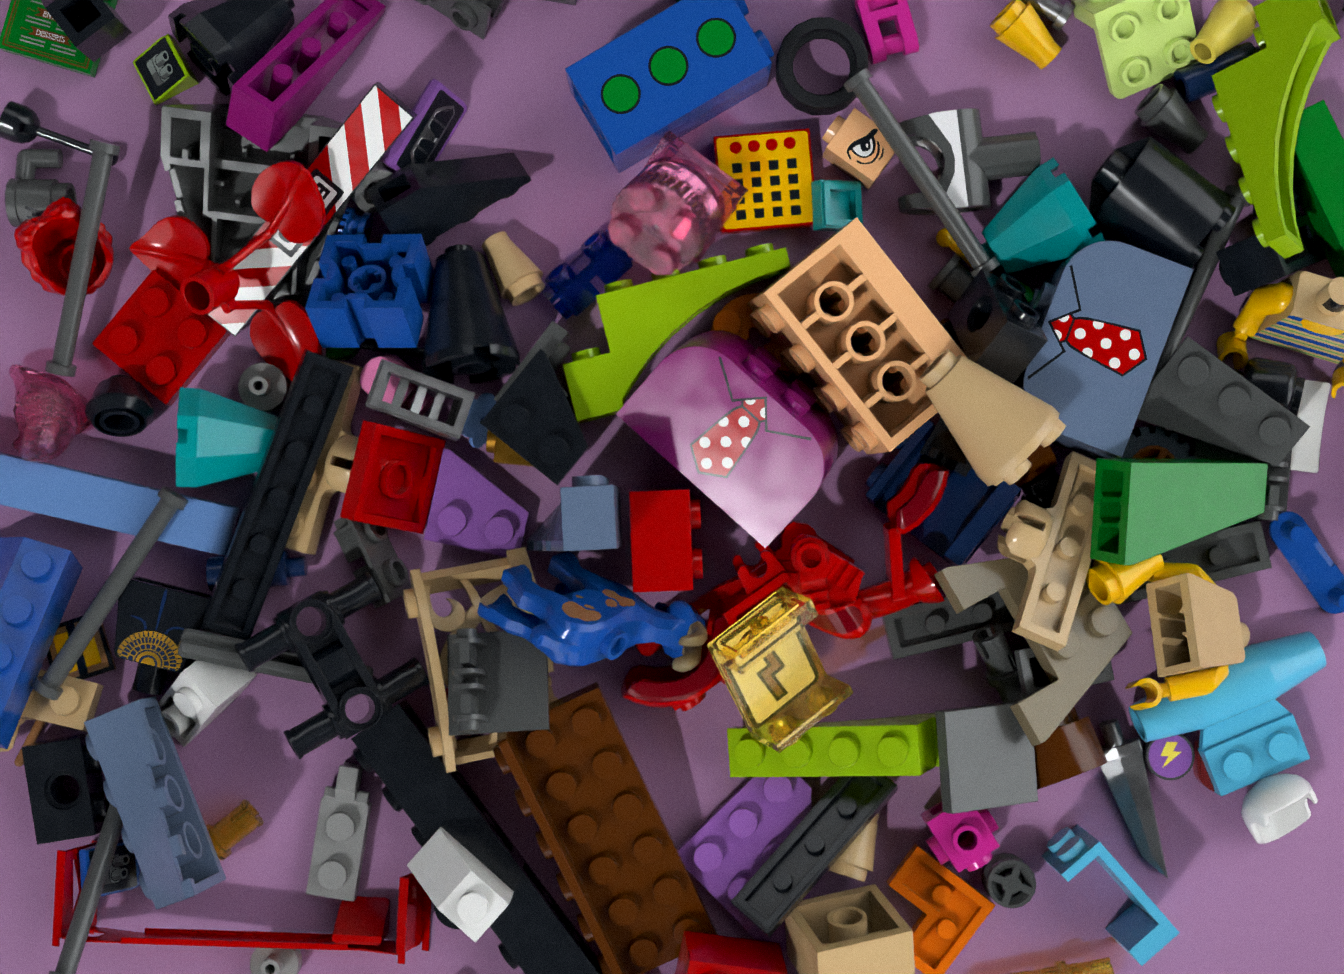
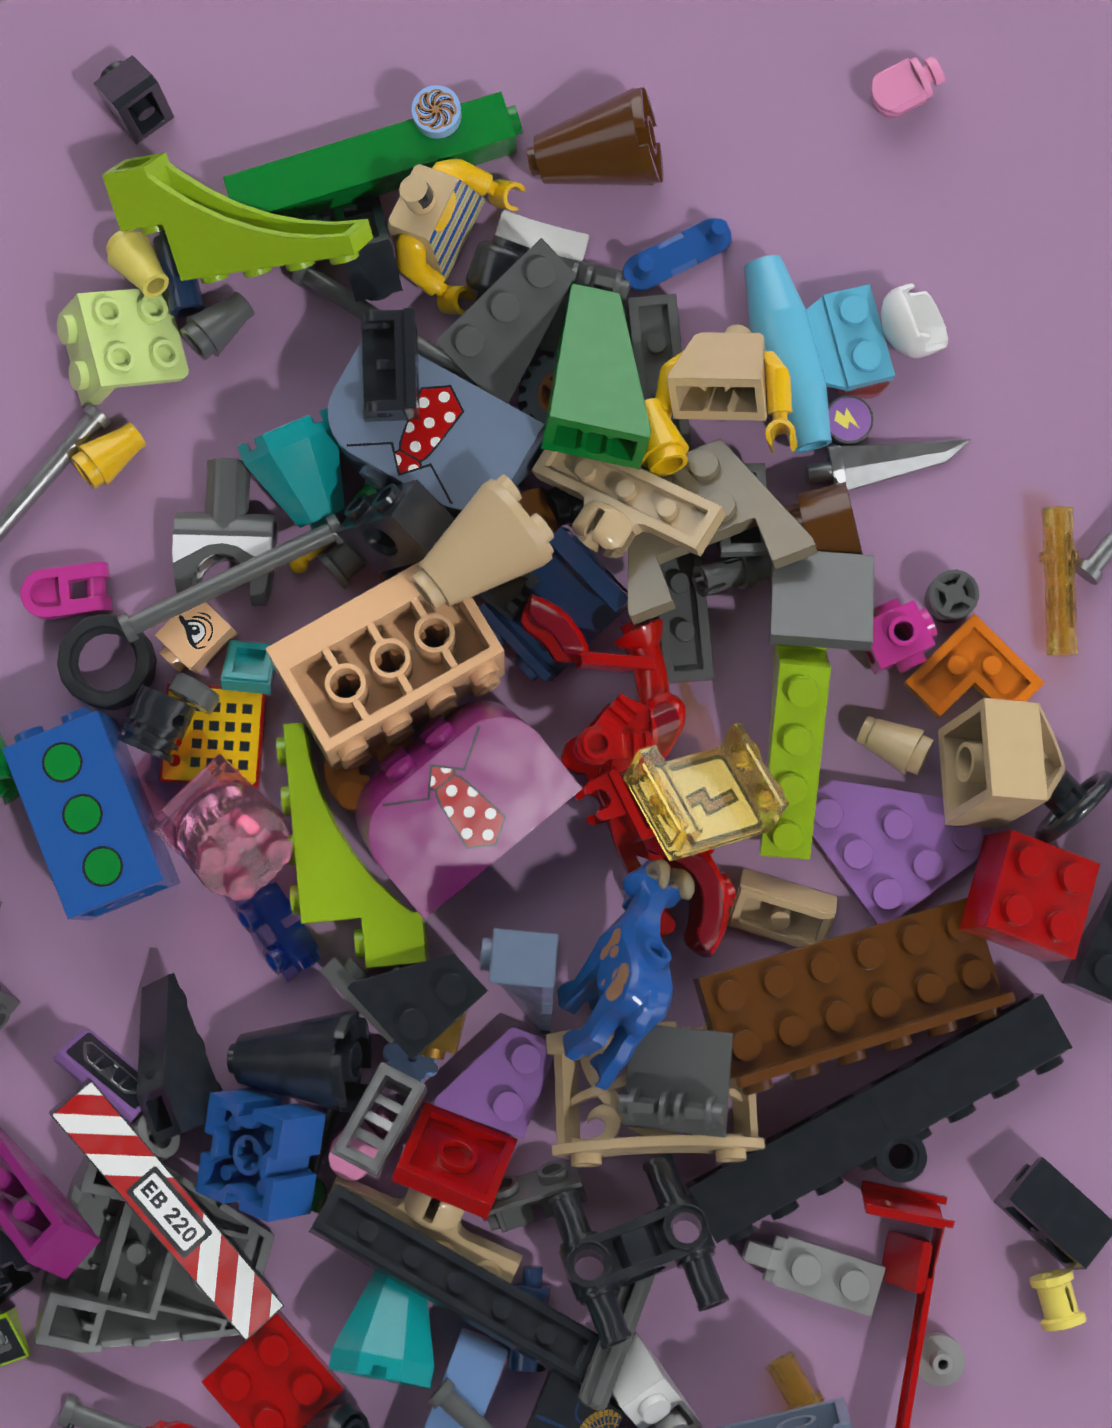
camera: 80 degrees left, 5 degrees down
(180, 253) = (190, 1349): red plant -> none
(273, 391) = (344, 1271): light grey tile -> none
(356, 223) = (188, 1160): blue bush -> none
(460, 884) = (879, 1151): white slope -> none
(513, 271) = (261, 1006): tan cone -> none
(663, 540) = (559, 890): red brick -> none
(678, 756) = (781, 909): none -> tan slope
(768, 124) = (156, 723): none -> black piece
(803, 156) = (194, 693): none -> dark grey tile
(812, 849) = (892, 787): black tile -> none
(1142, 926) = (1012, 469): medium azure panel -> none
(1157, 201) = (296, 352): black cylinder -> none
(1158, 296) = (390, 365): none -> black hinge

